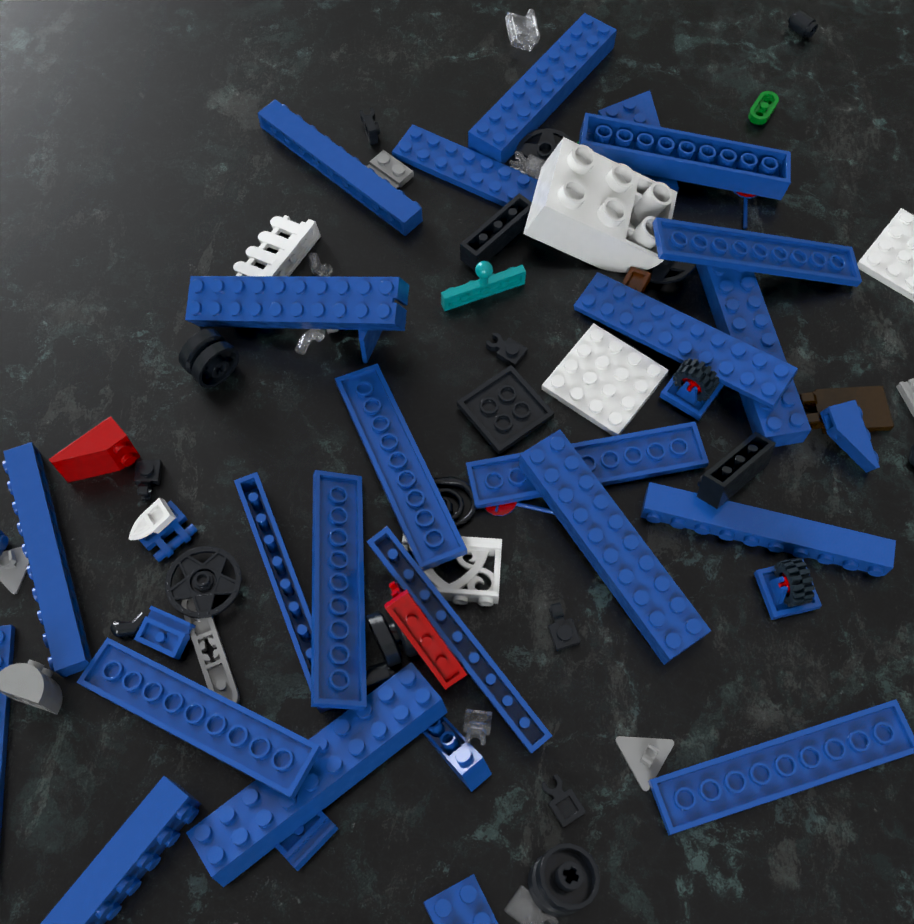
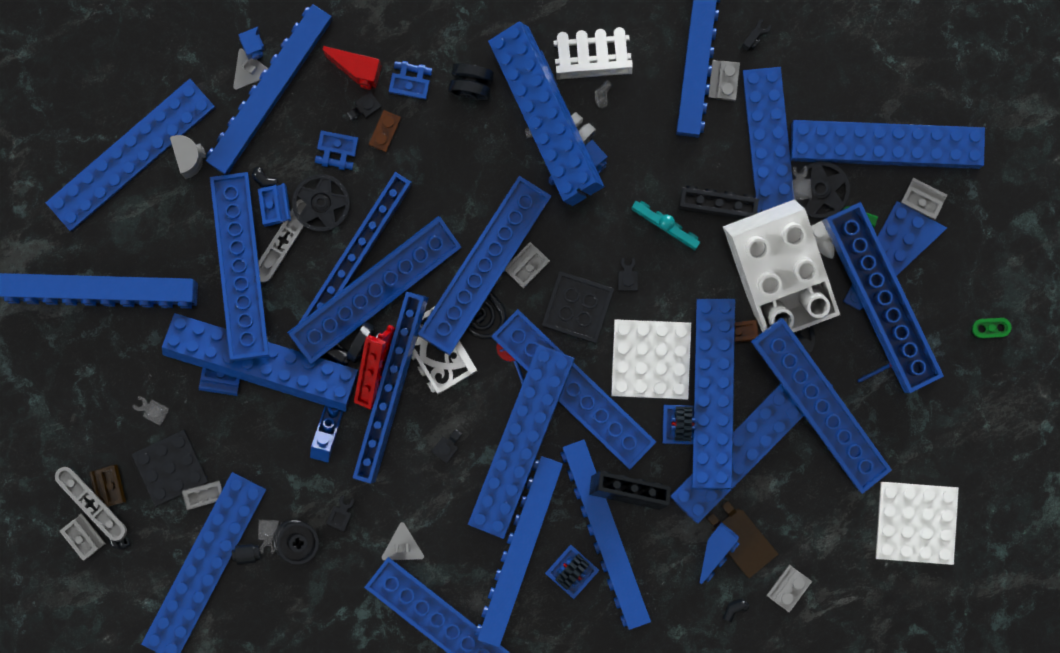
camera: 55 degrees right, 20 degrees up
(152, 520) = (335, 139): white plate -> none
(162, 422) = (408, 85): none -> blue plate
(187, 474) = (385, 131): none -> reddish brown plate
(428, 427) = (527, 265): none -> light grey plate
(477, 725) = (350, 434): clear plate -> none
(523, 30) = (939, 85): clear bracket -> none
(611, 91) = (924, 199): none -> light grey plate
(743, 635) = (519, 552): none -> blue brick

